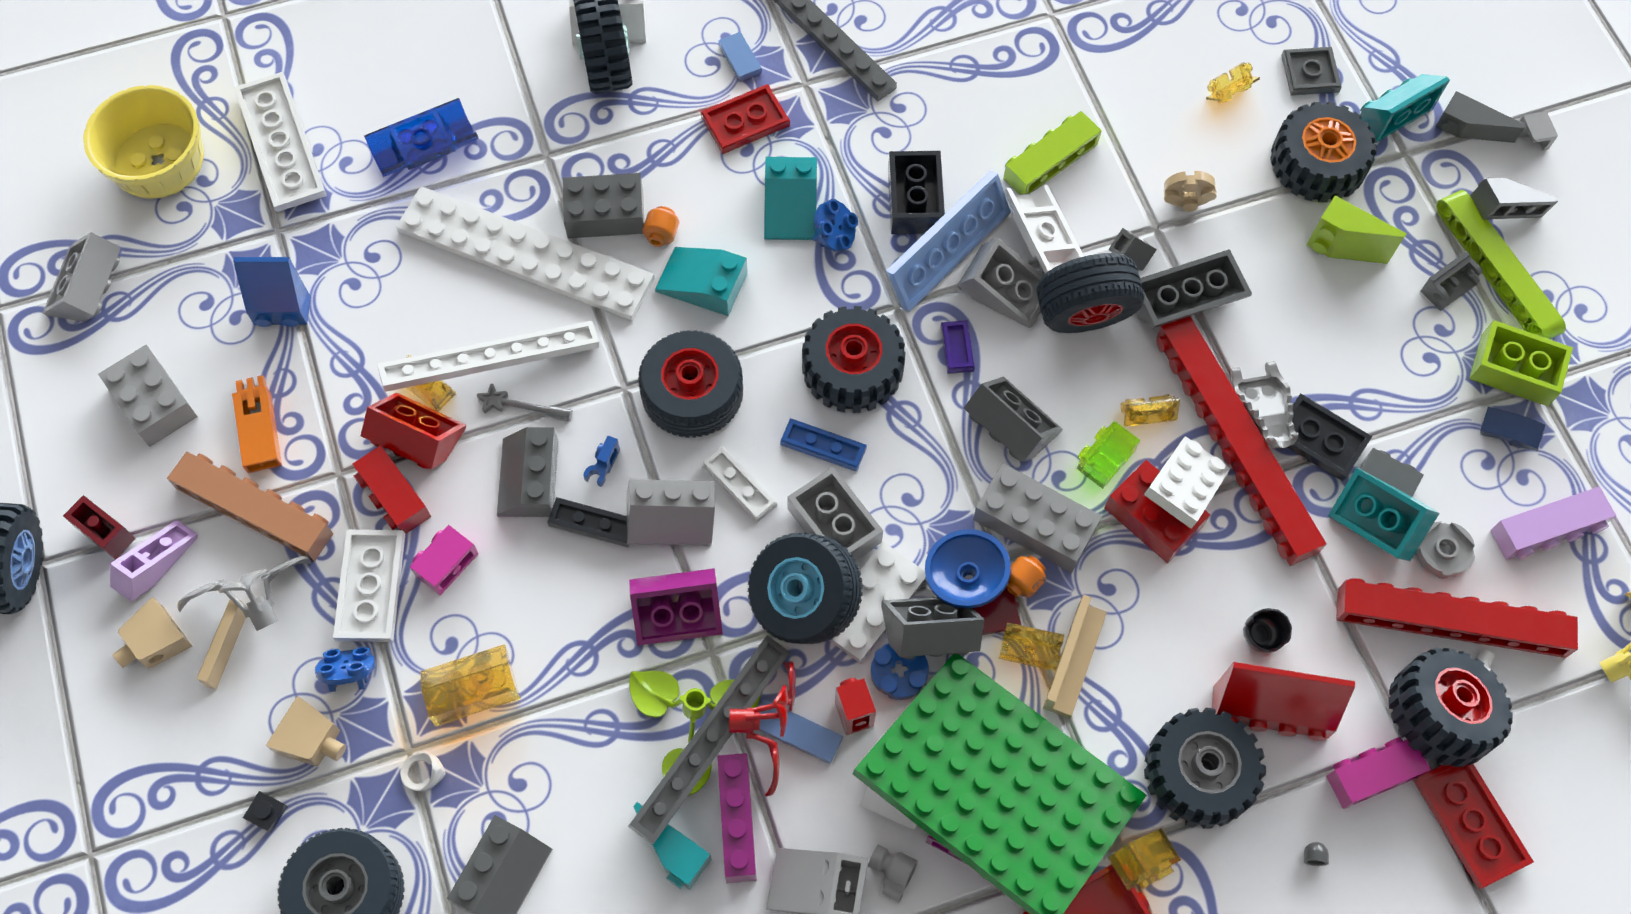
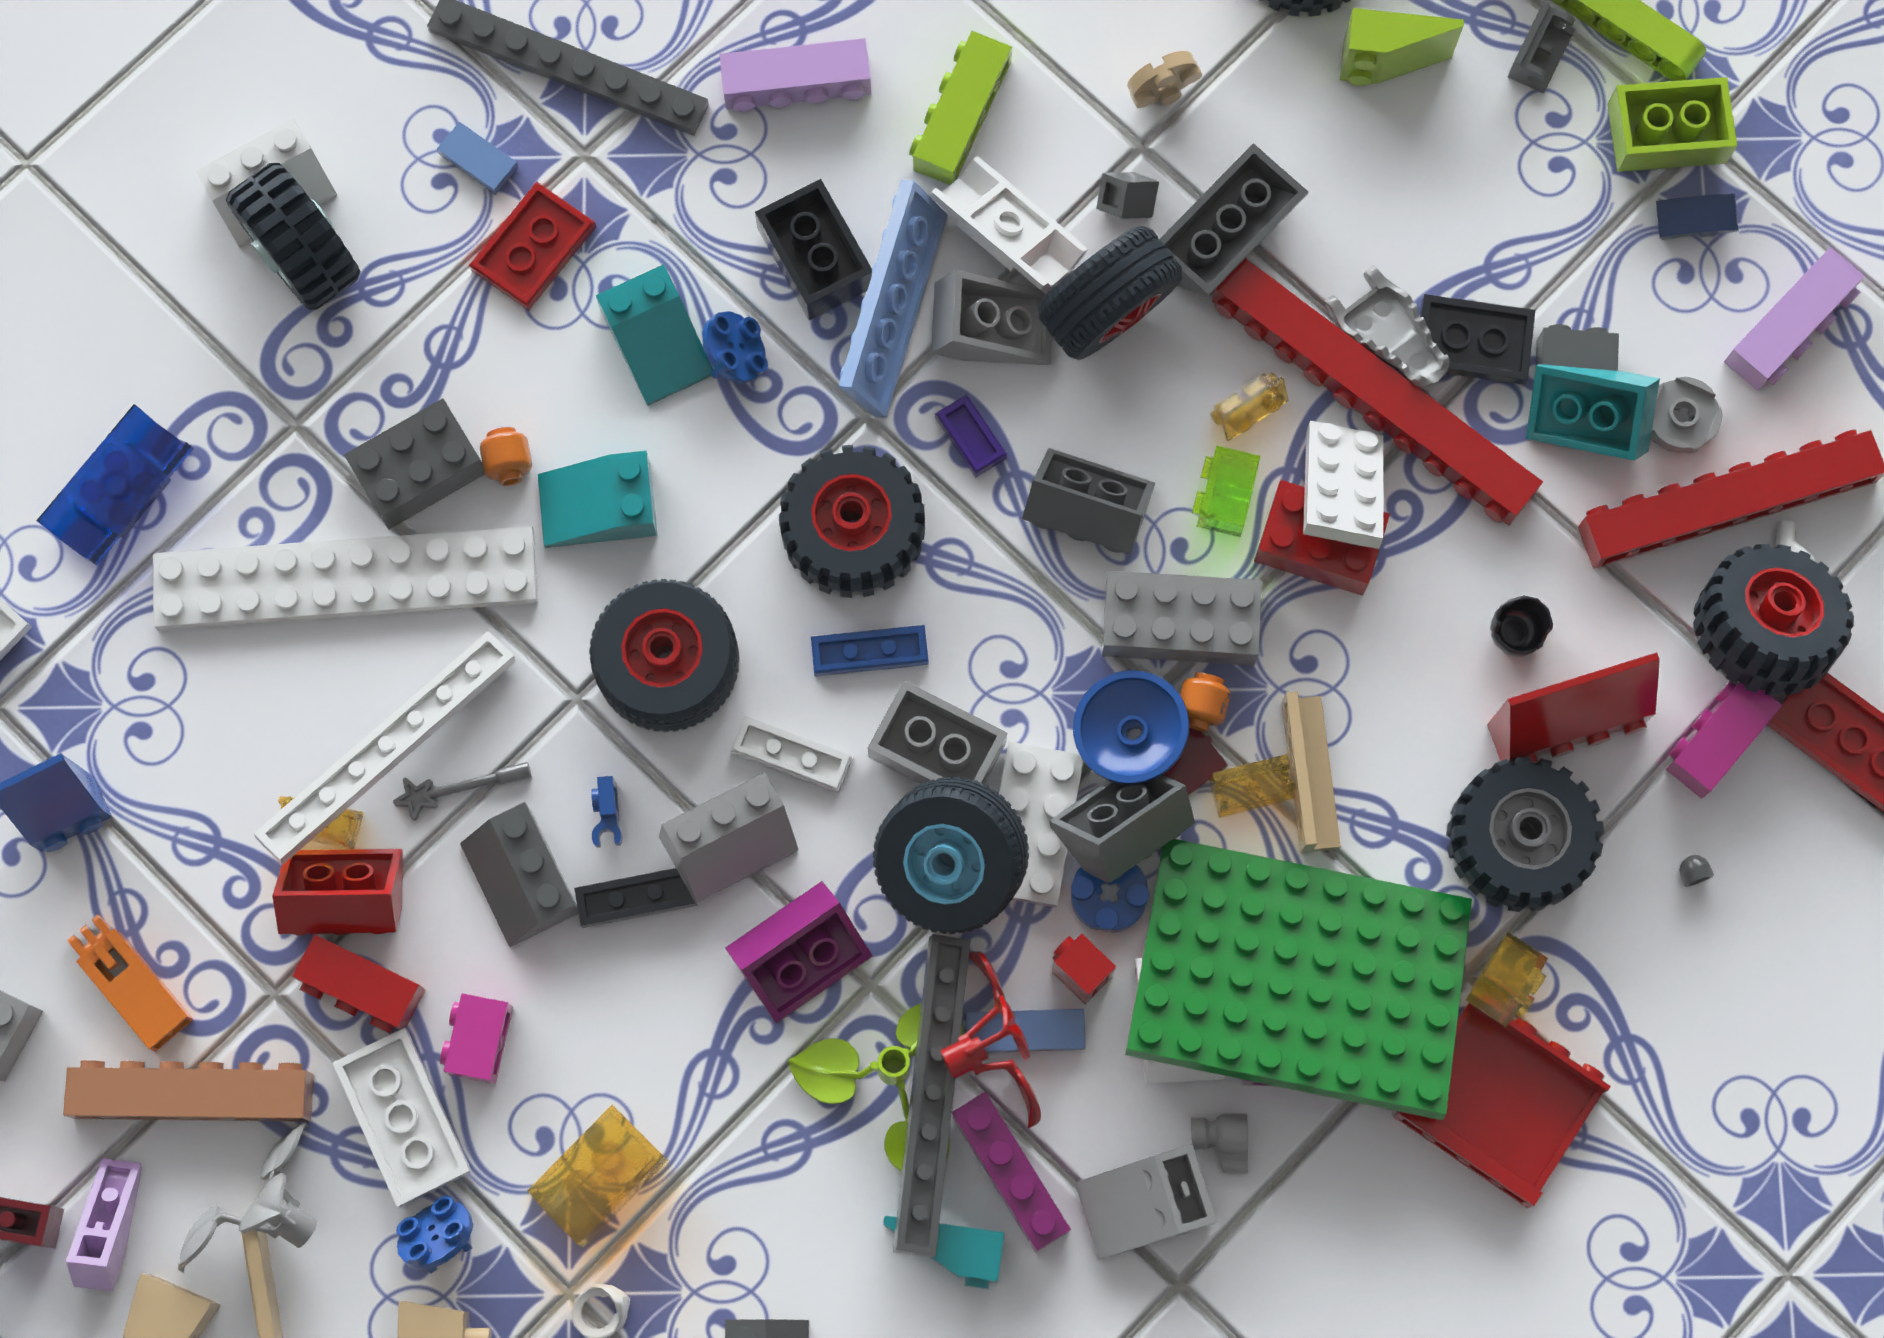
camera: 25 degrees left, 10 degrees up
(958, 91) = (795, 74): none -> lavender brick

